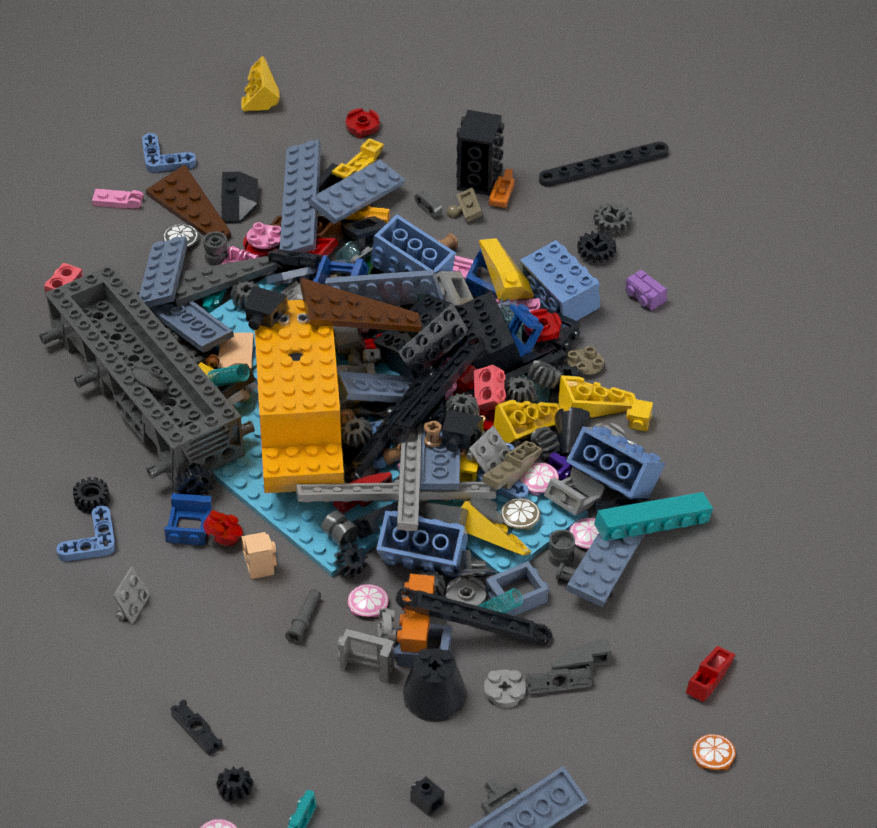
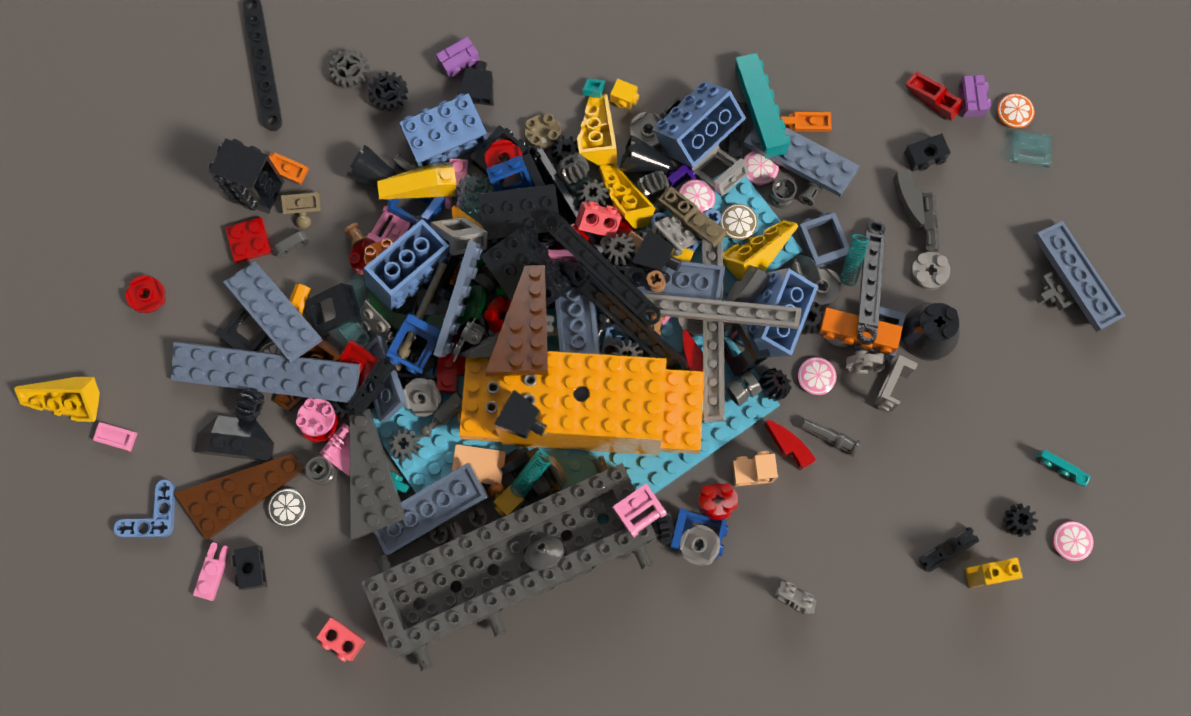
camera: 80 degrees left, 30 degrees up
(87, 487) = (642, 638): black tyre -> none
(96, 543) = (712, 630): medium blue beam -> none
(122, 219) = (257, 576): none -> black brick
(163, 271) = (354, 530): sand blue plate -> none
(170, 745) = (993, 573): none -> yellow hips
(176, 514) = (695, 535): none -> light grey plate
(199, 421) = (634, 505): none -> bright pink plate
(230, 125) = (115, 436): none -> bright pink tile
(270, 194) = (249, 404): none -> black gear
(289, 582) = (790, 444): none -> red slope
(368, 154) = (210, 305): yellow slope -> none
(426, 796) = (1046, 354): black brick -> none
(428, 178) = (248, 240): none -> red plate
(487, 509) = (740, 250): dark grey dish -> none
(515, 237) = (369, 168): none -> black cone
(620, 307) = (478, 84): none -> black torso
(640, 670) = (934, 145): none -> black brick
(641, 391) = (594, 88): none -> teal plate
(650, 566) = (808, 122): none -> orange hinge
(678, 770) = (1031, 143): none -> clear light blue plate
(719, 707) = (974, 96): none -> medium lavender brick

